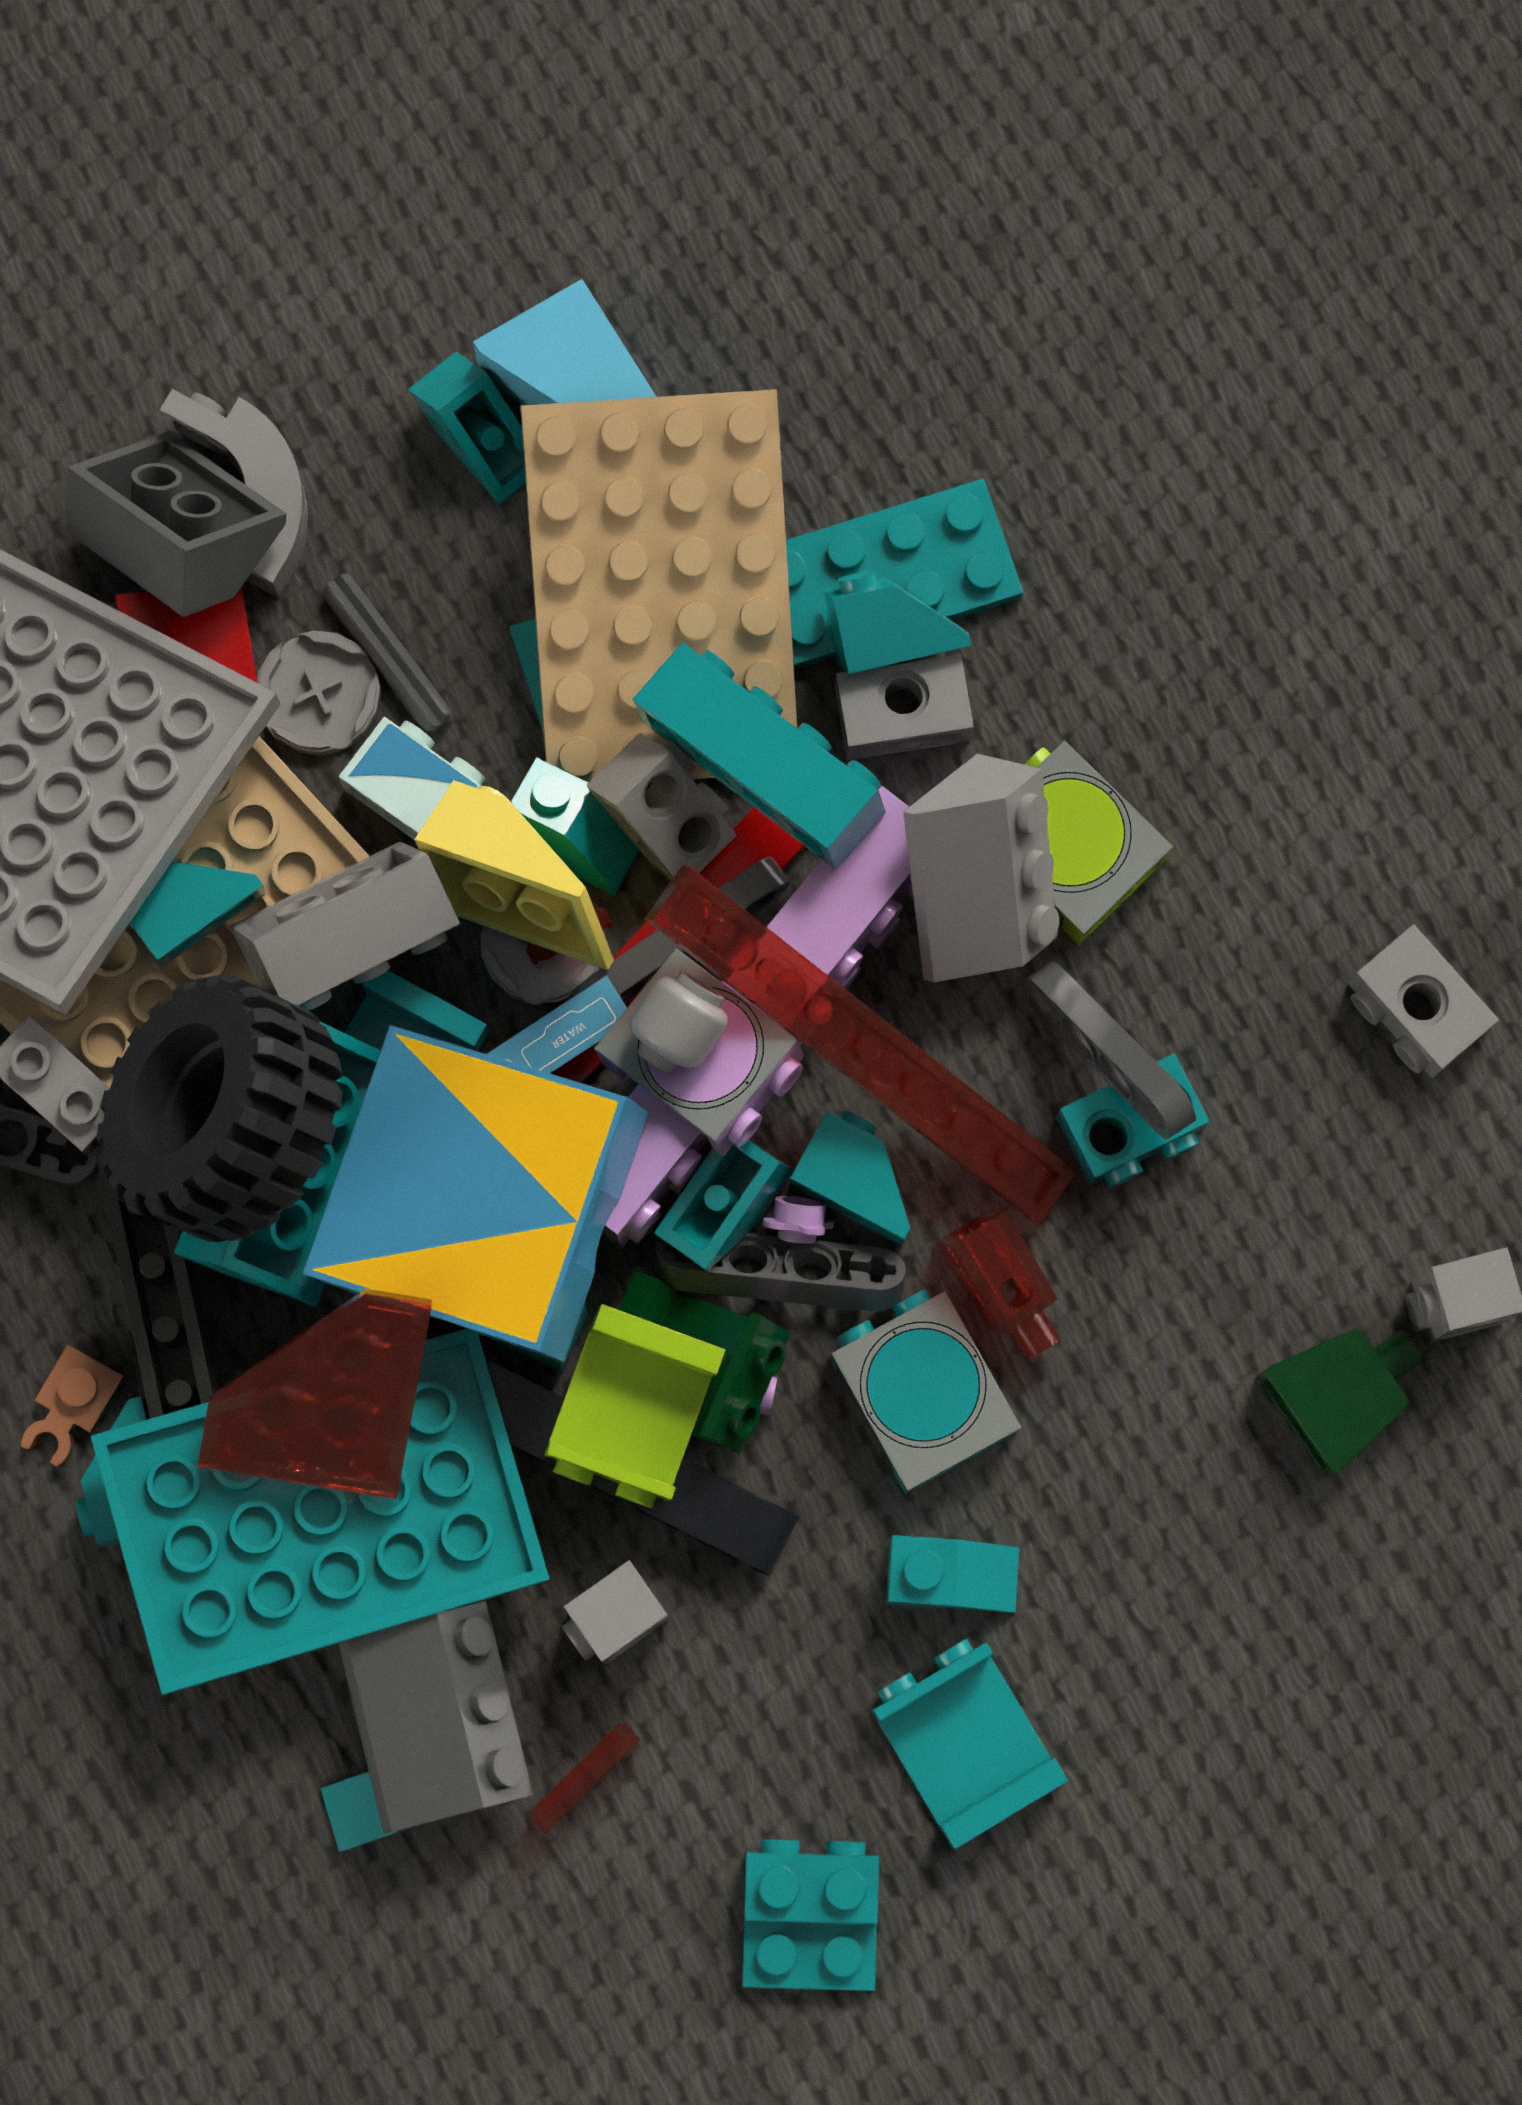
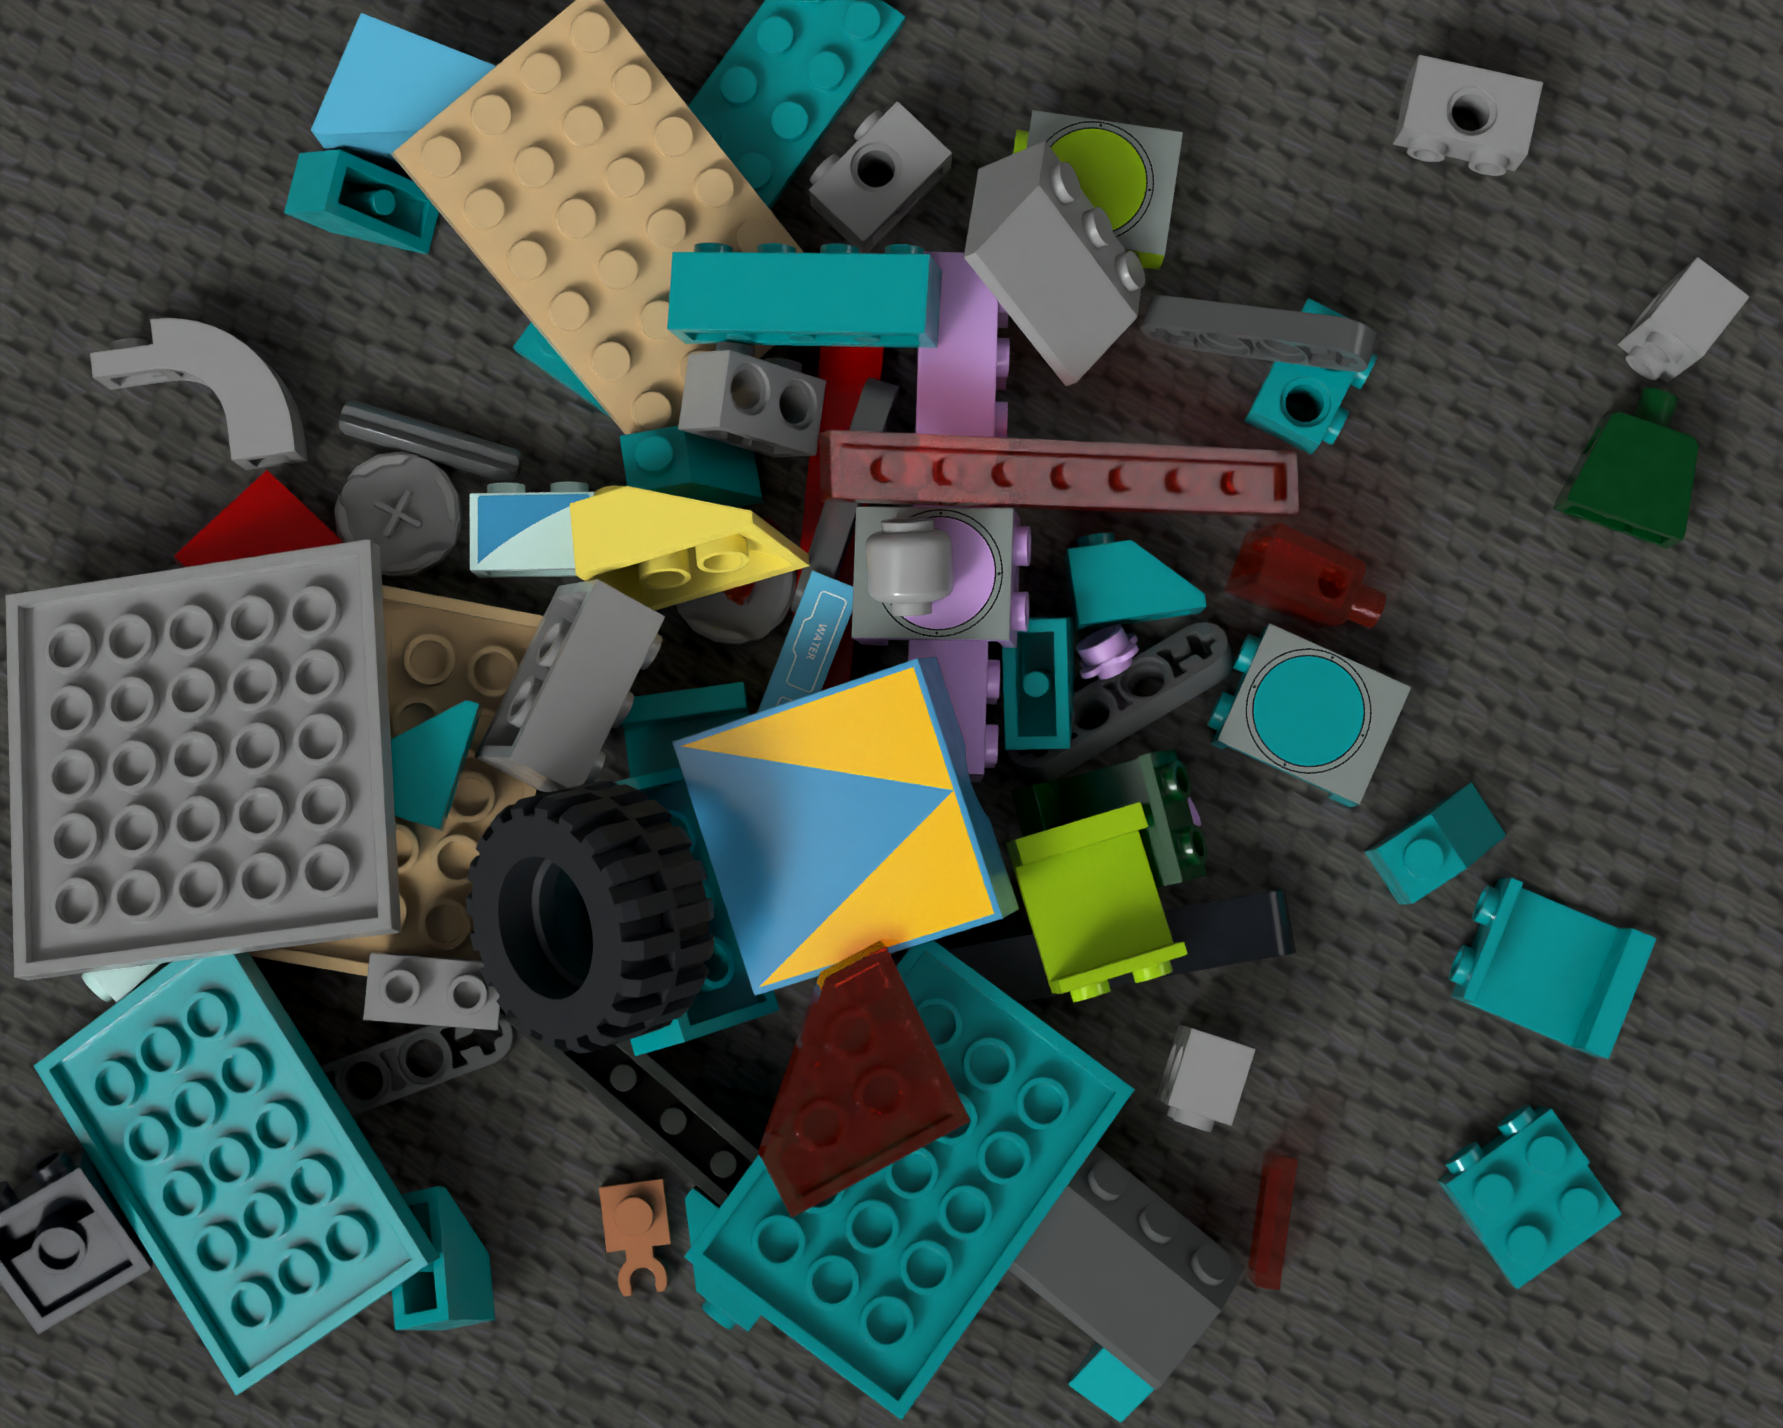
camera: 30 degrees left, 5 degrees up
(171, 521) = (173, 462): dark grey slope -> none
(885, 625) = (818, 121): teal slope -> none

